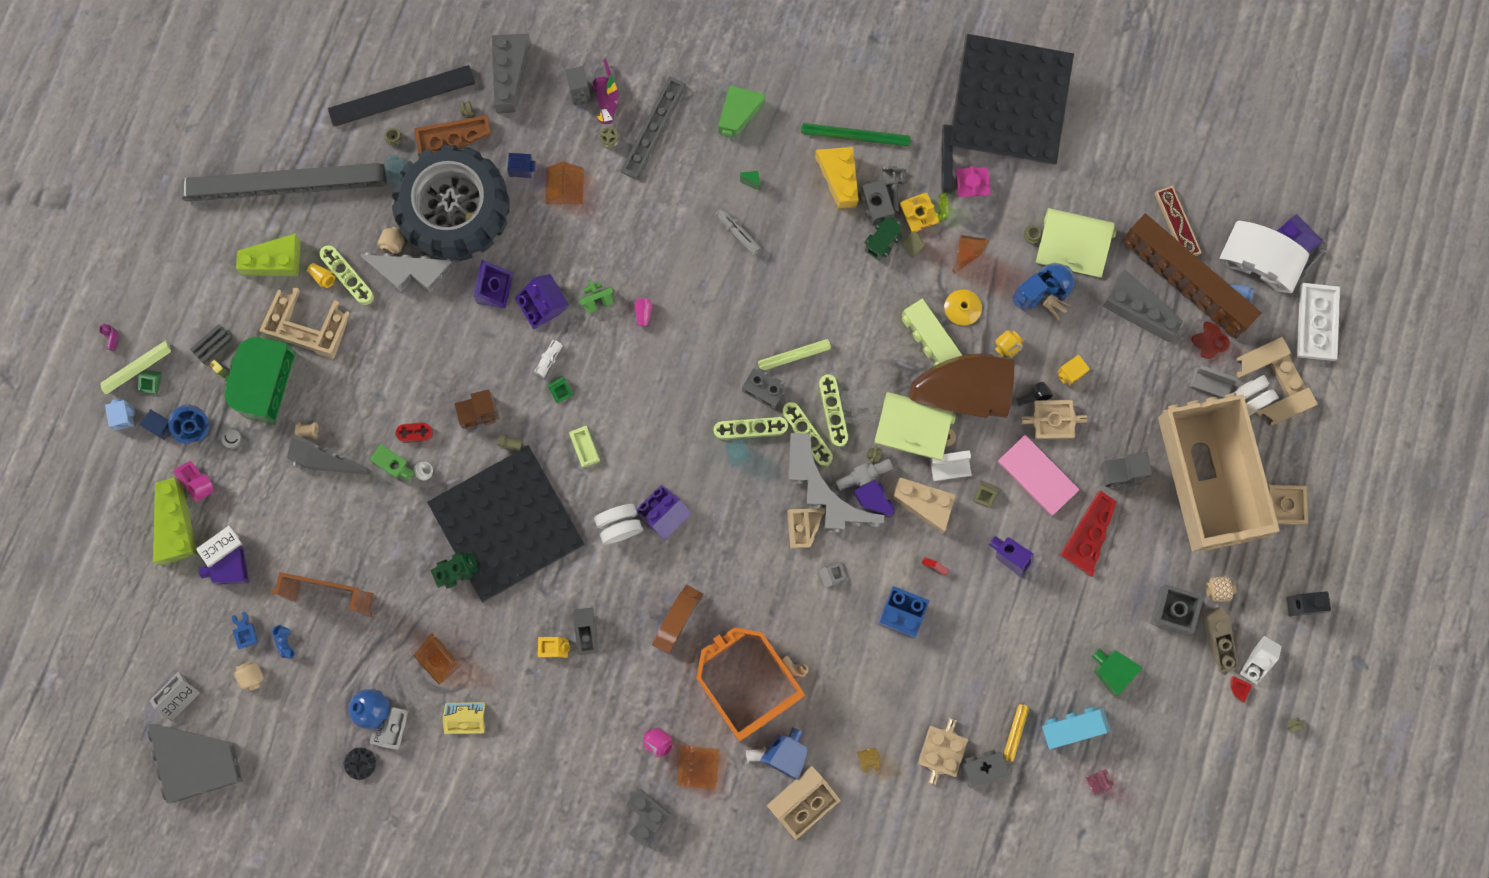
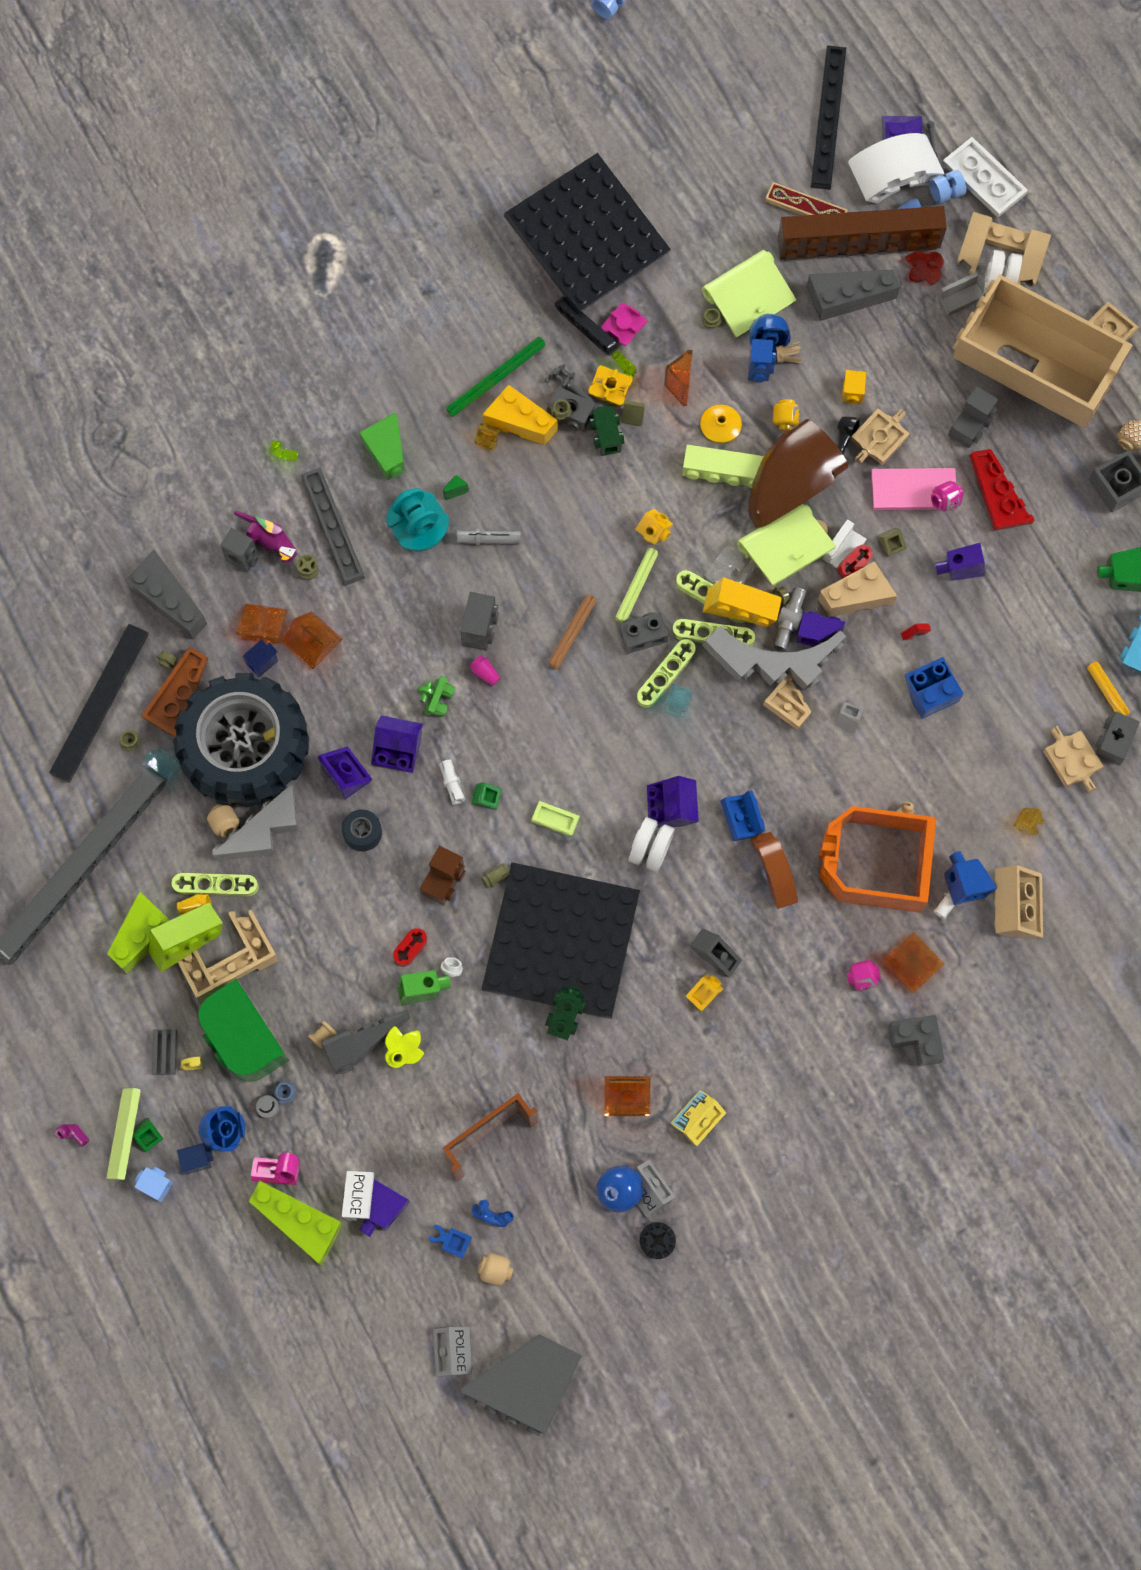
camera: 45 degrees left, 5 degrees down
(245, 441) = (282, 1086): none -> sand blue plate
(291, 286) = (183, 936): none -> lime wedge
(344, 489) = (405, 1045): none -> neon yellow plate
(465, 326) = (358, 823): none -> black wheel
(545, 144) = (262, 623): none -> clear orange hinge
(670, 277) = (478, 621): none -> dark grey brick
(672, 51) = (284, 454): none -> clear neon green arm
(695, 566) = (743, 816): none -> blue bracket
(705, 176) = (417, 520): none -> teal piece
(723, 342) = (572, 631): none -> medium nougat axle
(806, 167) = (487, 436): none -> clear yellow tile
(842, 434) = (742, 603): none -> yellow wedge
(844, 329) = (654, 527): none -> yellow brick
(867, 191) = (561, 404): none -> olive plate
(947, 477) = (851, 558): none -> red beam
(1050, 502) = (947, 496): none -> dark pink head
(1259, 179) = (828, 117): none -> black tile
(1279, 299) = (945, 187): none -> light blue wheel

